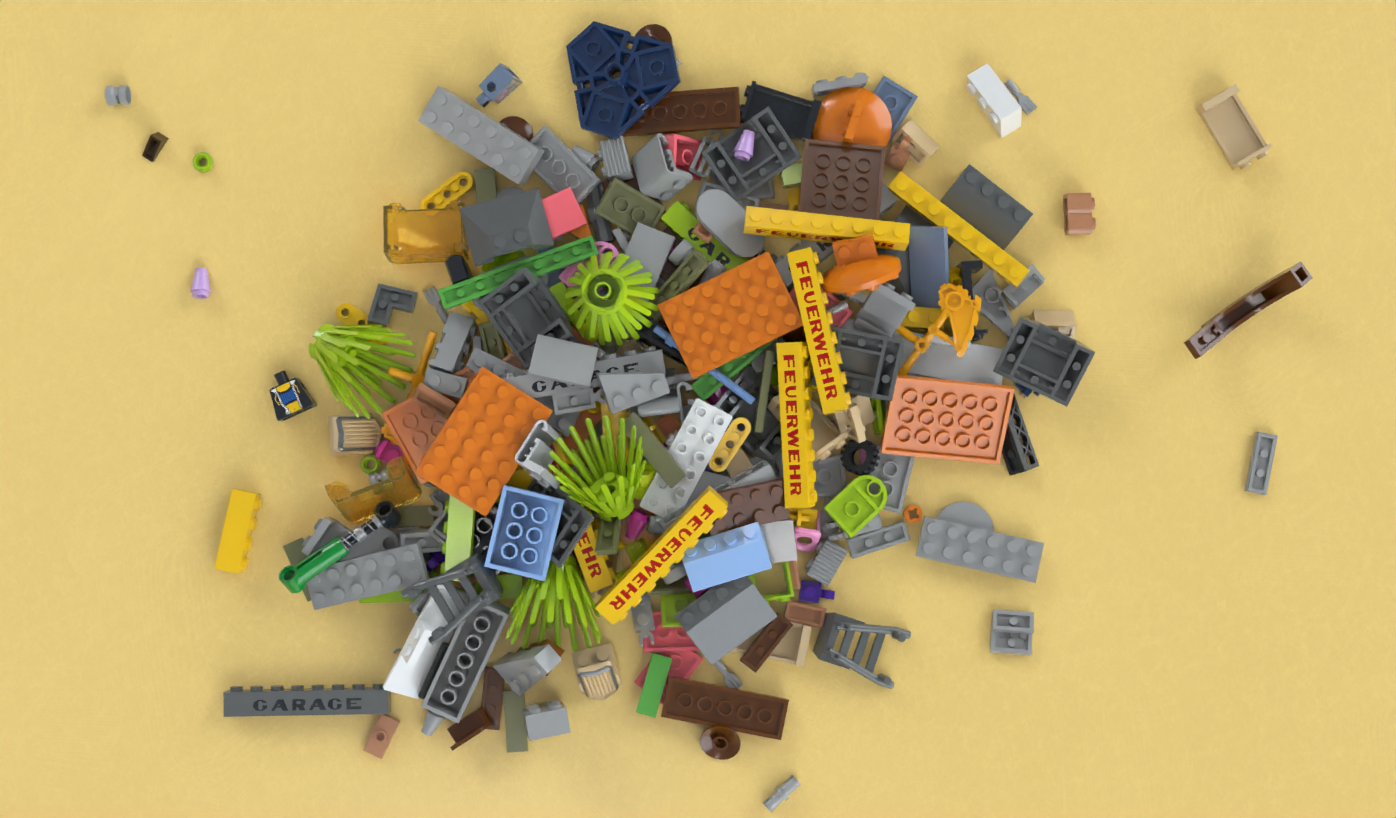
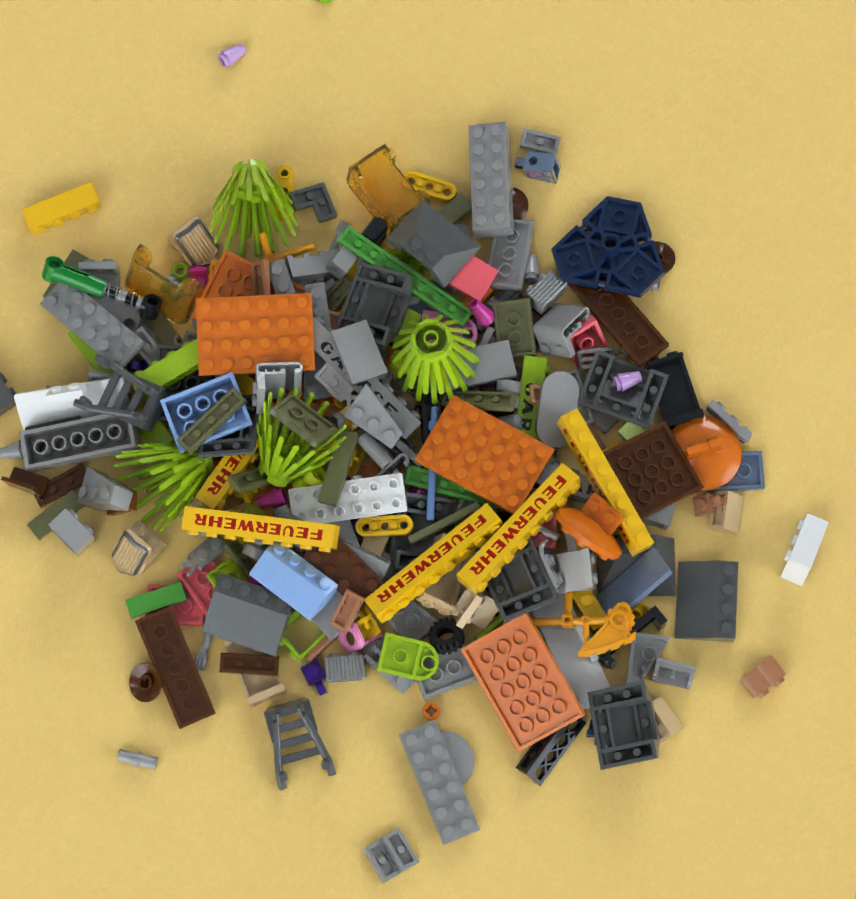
camera: 60 degrees right, 10 degrees down
(290, 397) = (190, 177): torso -> none
(466, 319) = (341, 262): none -> light grey panel
(475, 69) = (539, 141): none -> light grey plate
(536, 534) = (211, 420): none -> olive tile
(593, 453) = (303, 420): none -> olive tile
(600, 228) = (482, 314): none -> dark pink cone
(611, 423) = (337, 419): none -> dark grey hinge
(784, 528) = (347, 610): none -> nougat plate
(805, 614) = (292, 680): nougat tile -> none
(863, 326) = (549, 562): none -> light grey piece
(877, 539) = (391, 698): light grey tile -> none
(958, 230) = (679, 589): yellow brick -> none
(1024, 101) = (822, 574): light grey piece -> none
(1246, 307) = (780, 862): reddish brown arch -> none

